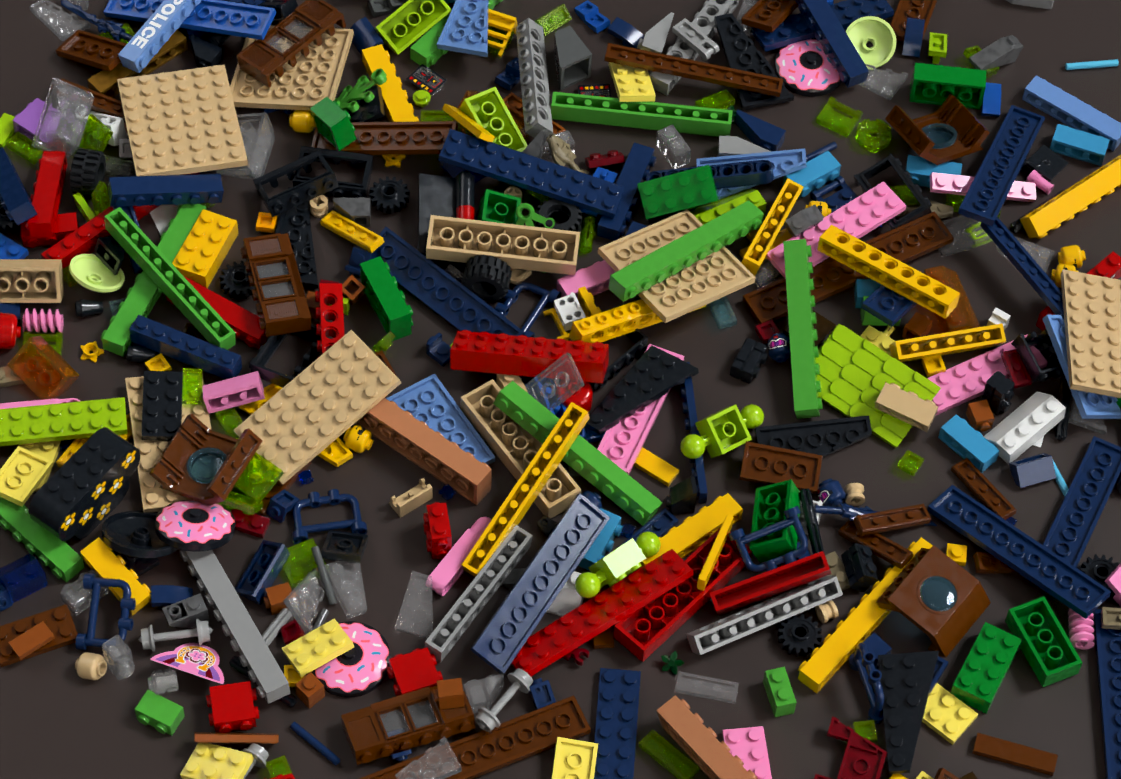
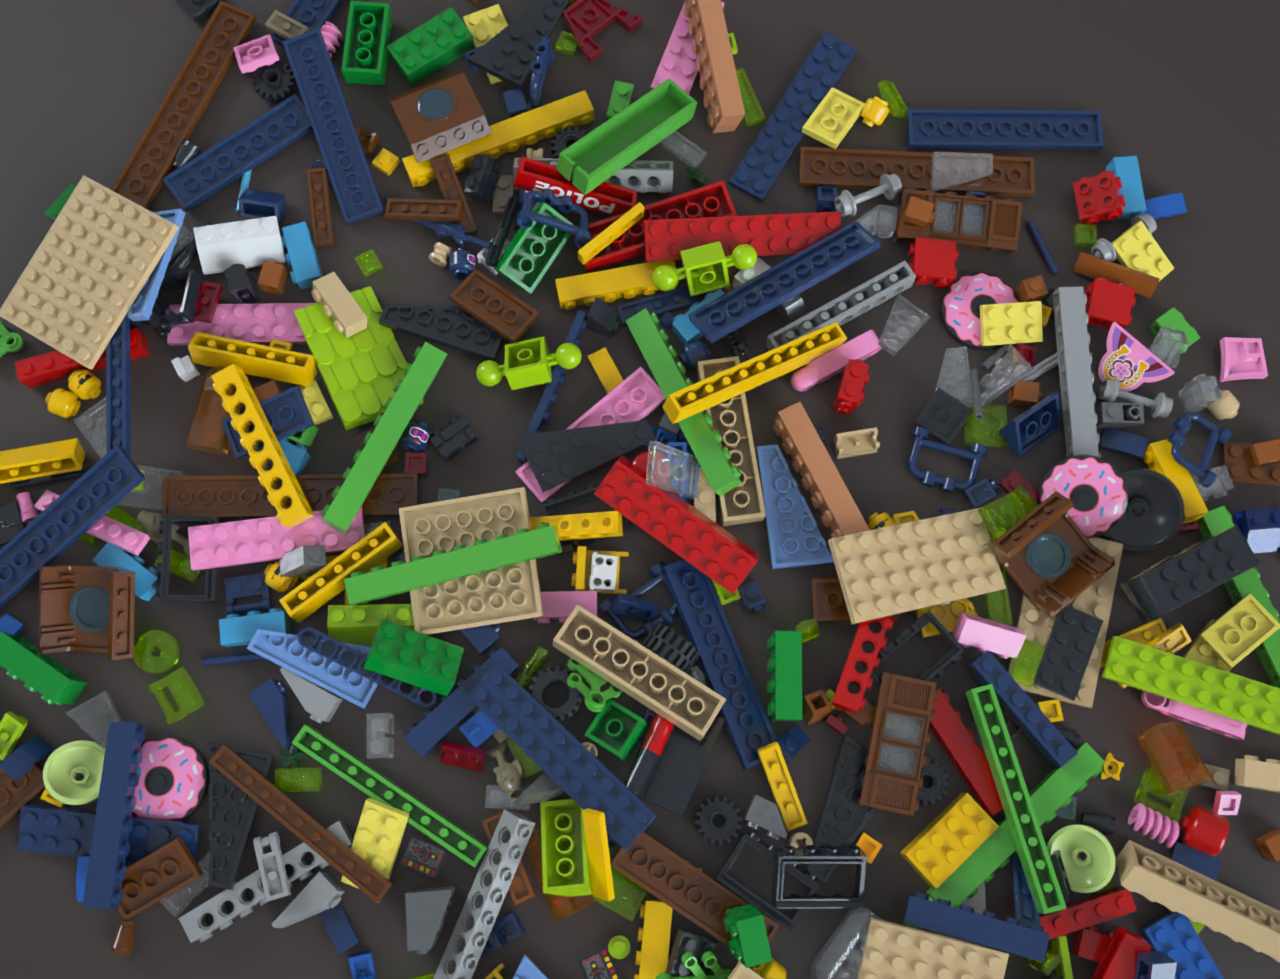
camera: 155 degrees left, 20 degrees up
(84, 718) = (1242, 359): none -> bright pink plate
(524, 302) = (634, 607): none -> dark blue plate
(751, 643) = (626, 136): none -> bright green piece

